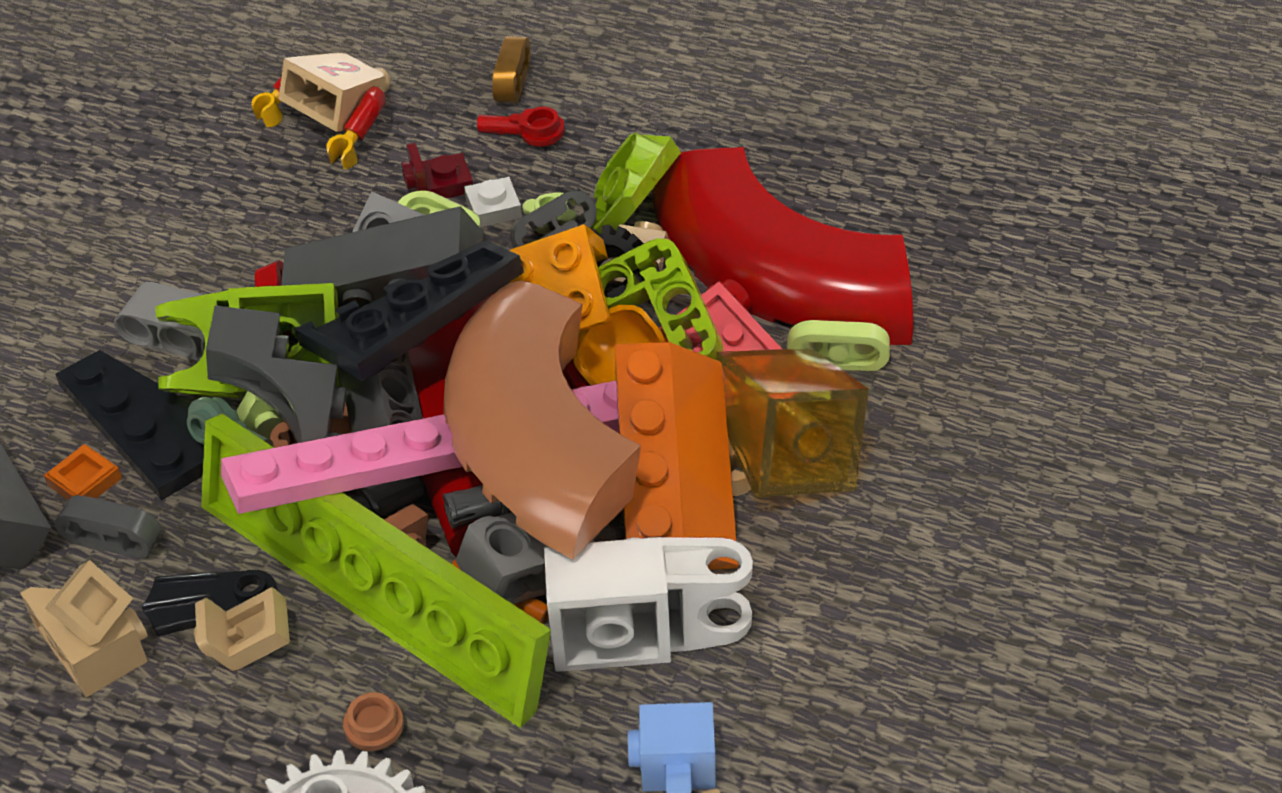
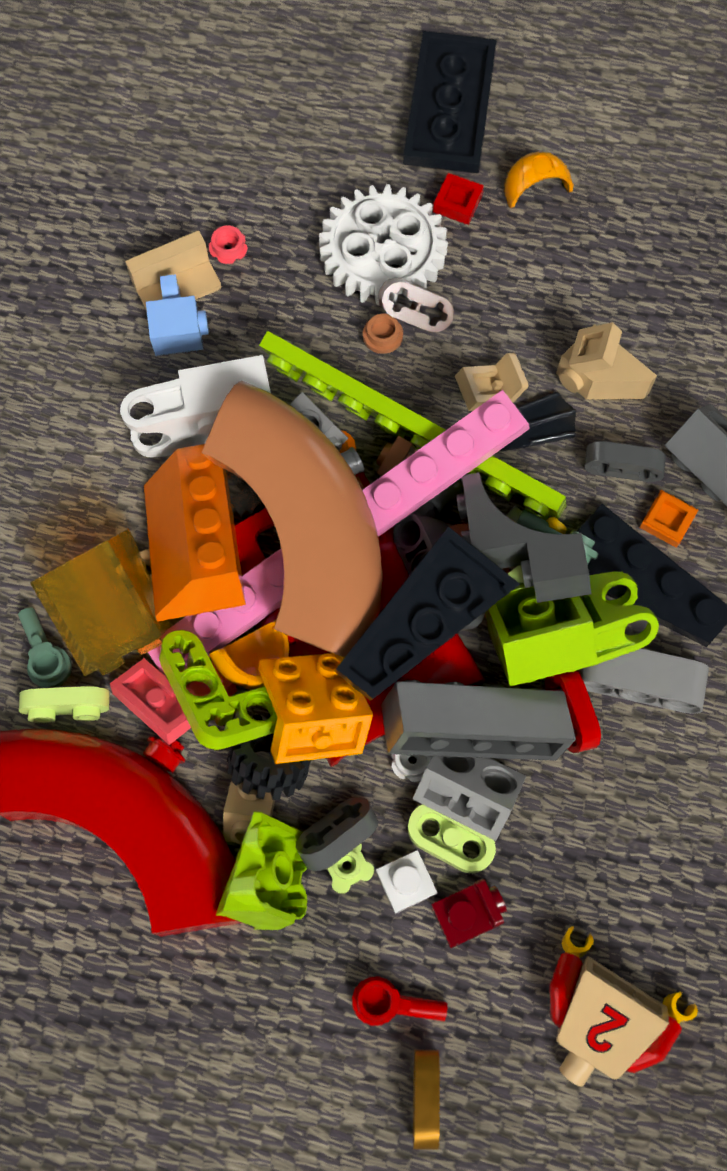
camera: 170 degrees right, 25 degrees up
(314, 734) = (413, 314): none -> beam
(875, 416) = (47, 664): none -> sand green plate

